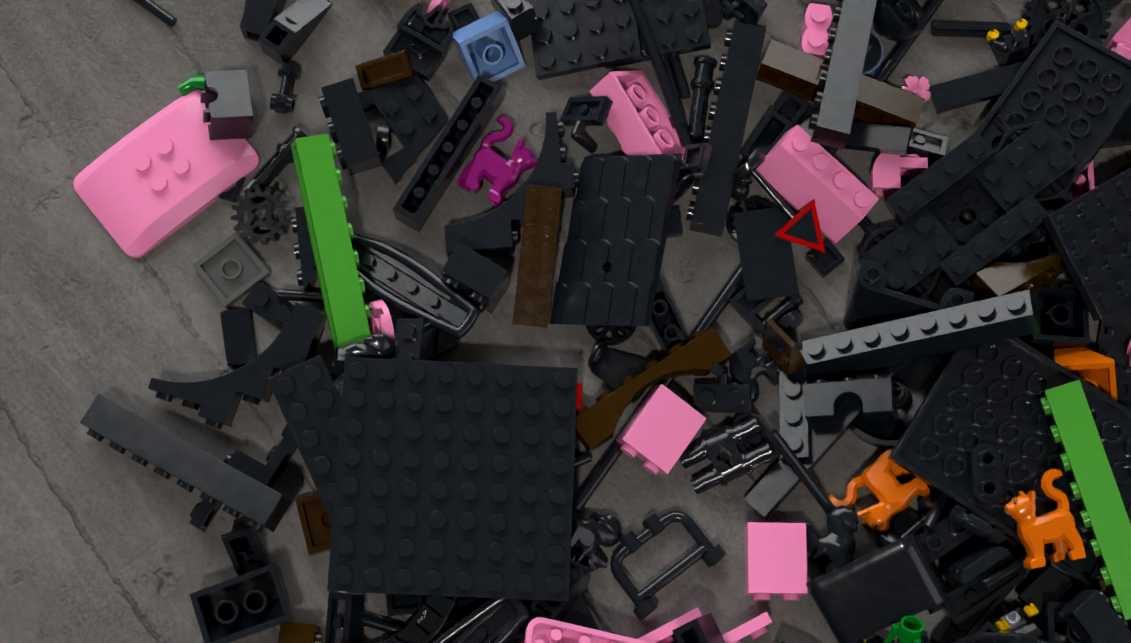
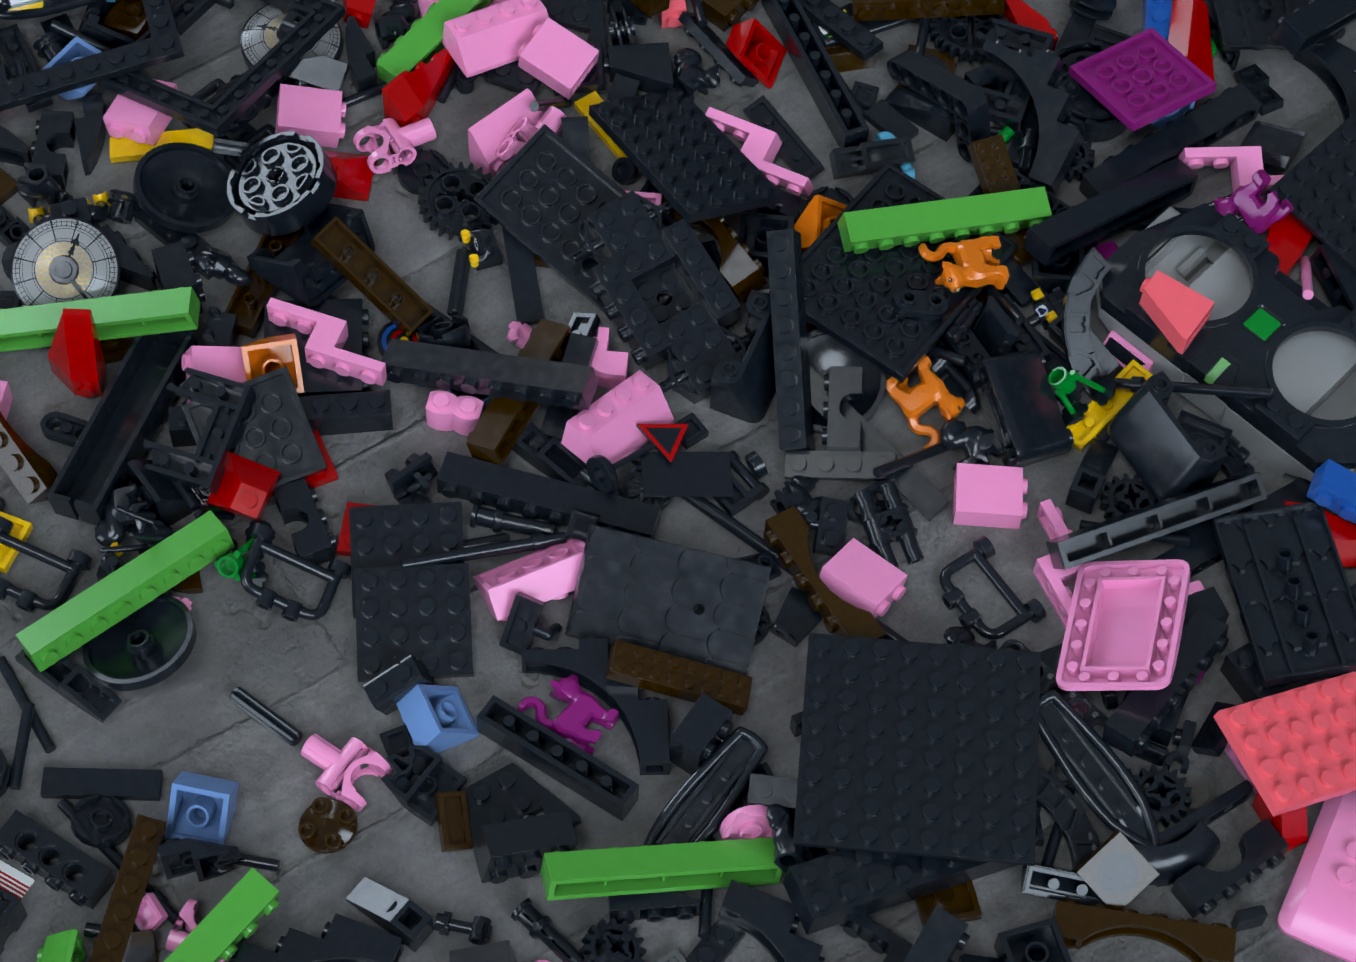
camera: 90 degrees left, 15 degrees down
(781, 347) = (785, 467): dark brown slope -> none

